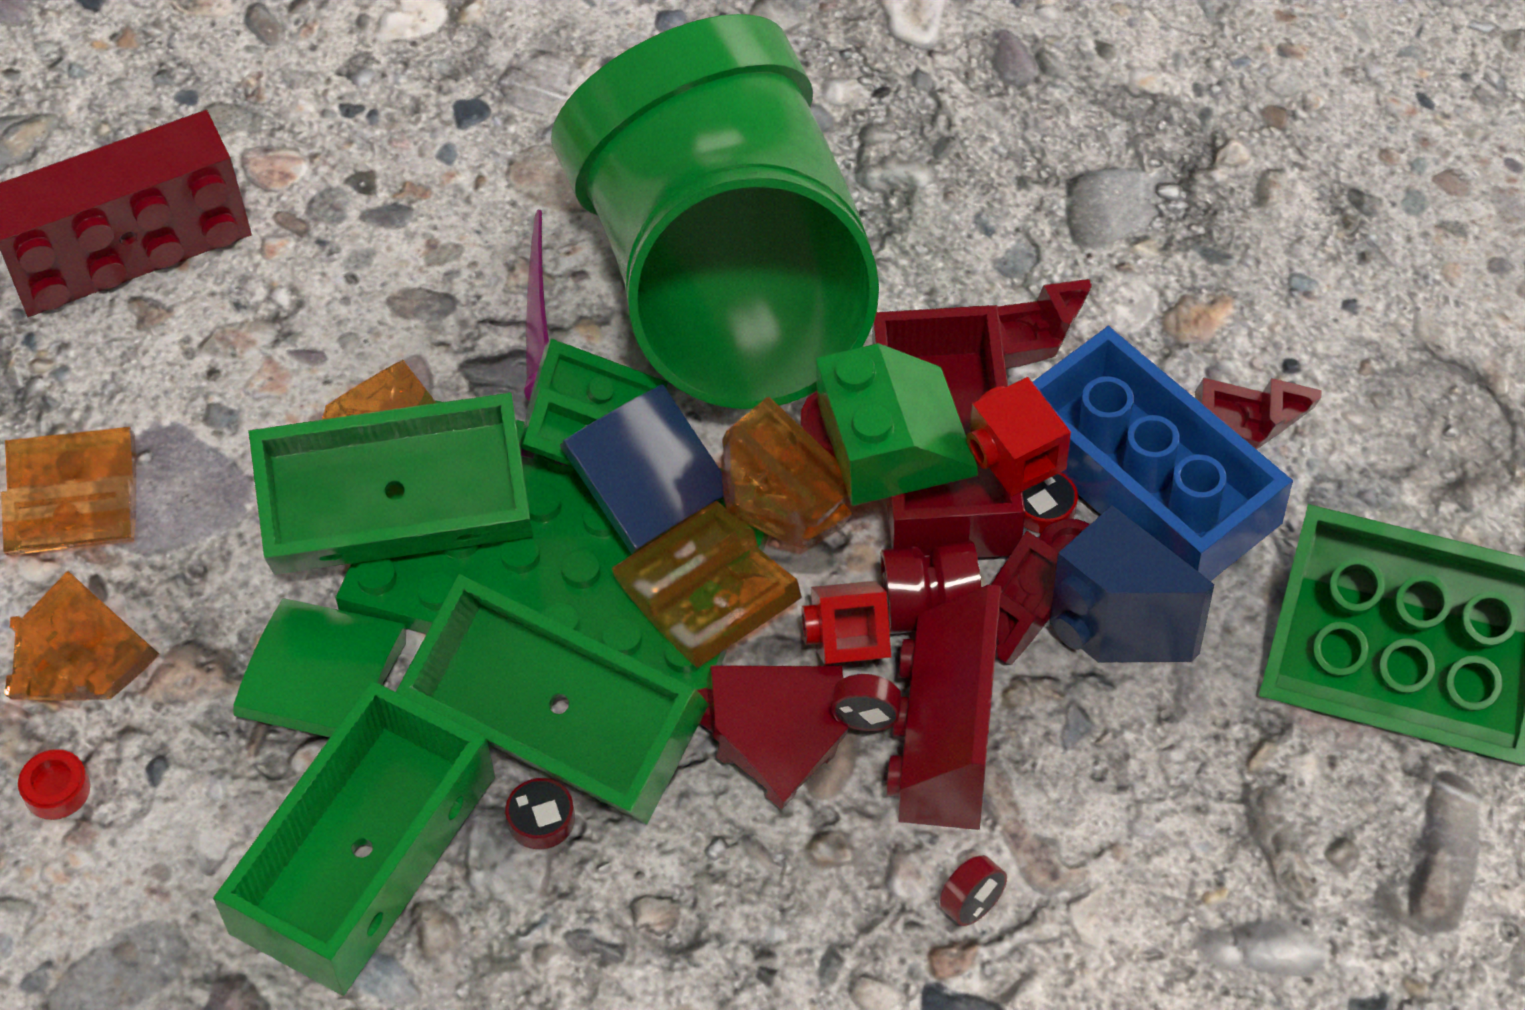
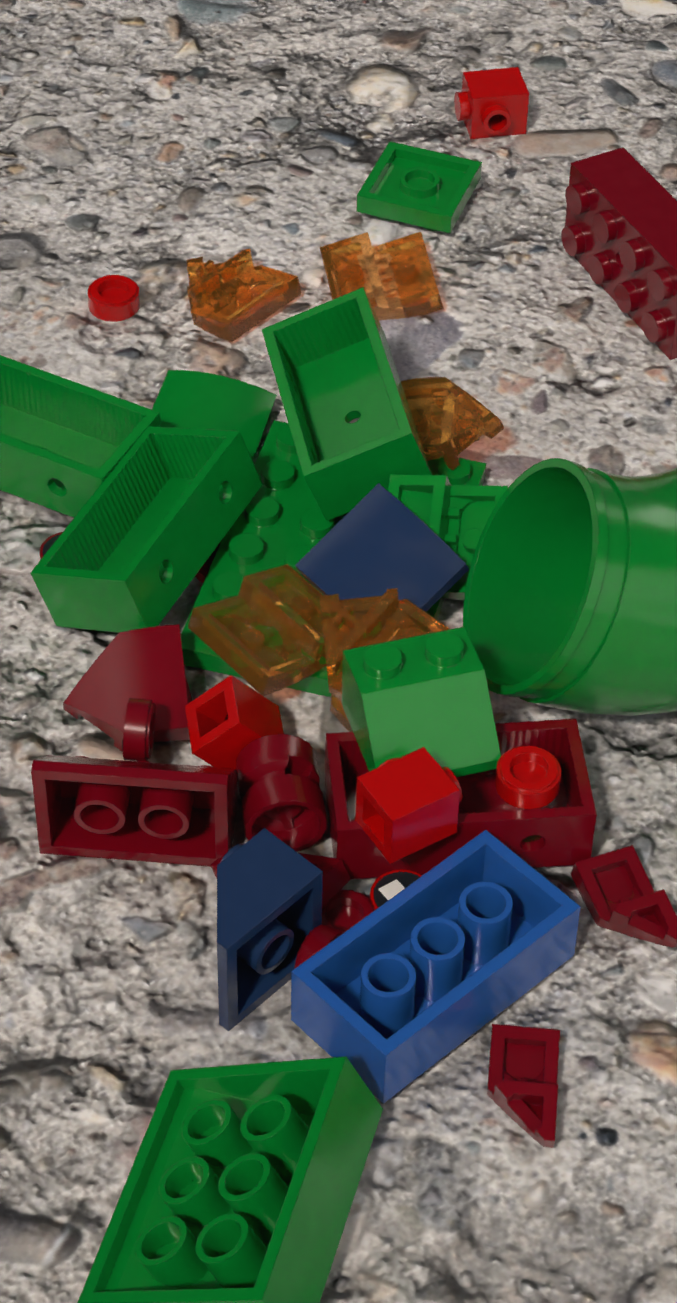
camera: 85 degrees right, 10 degrees down
(961, 348) = (528, 777): none -> red tile

